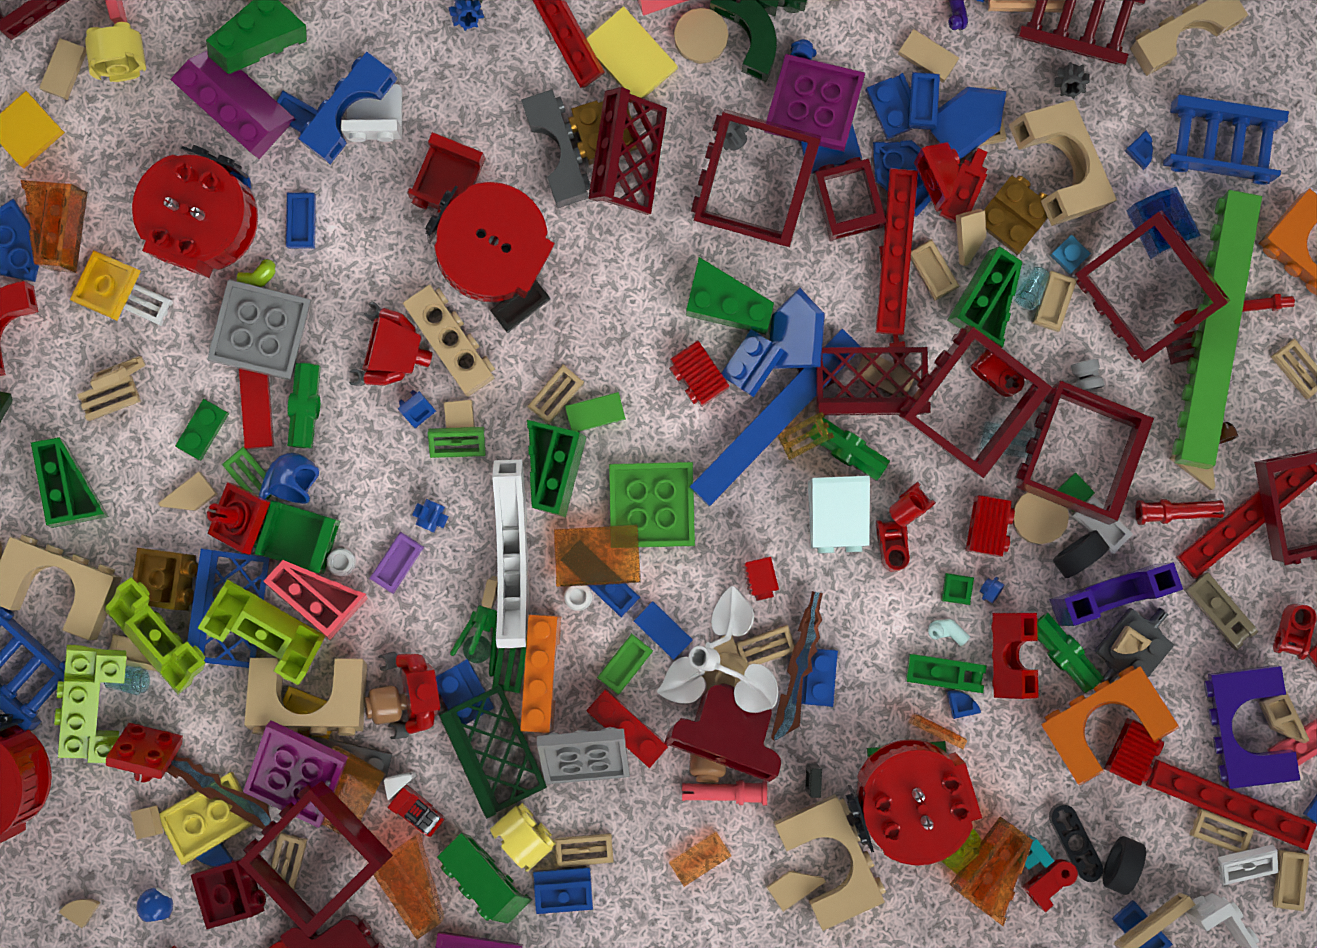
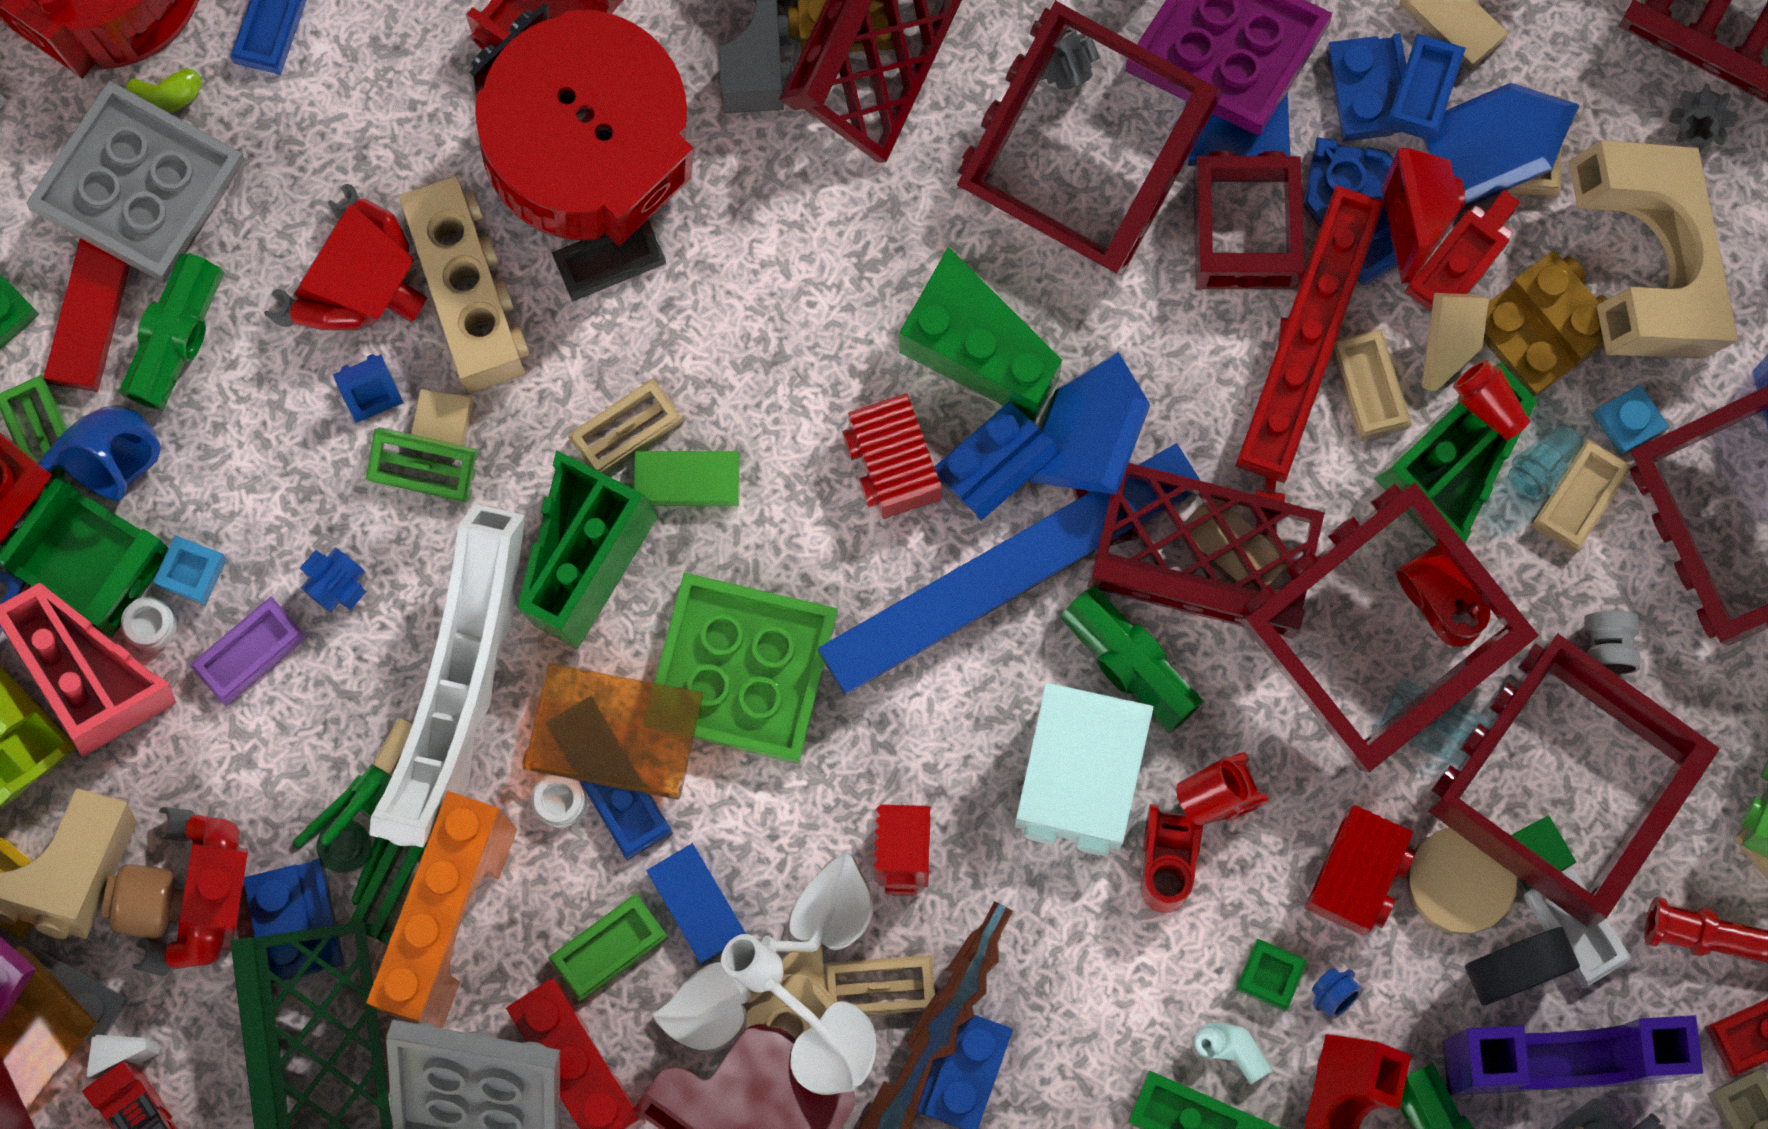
camera: 15 degrees right, 10 degrees down
(354, 529) = (190, 570): none -> dark azure plate
(821, 427) = (1088, 604): clear yellow tile -> none
(999, 268) = (1491, 398): none -> red cone

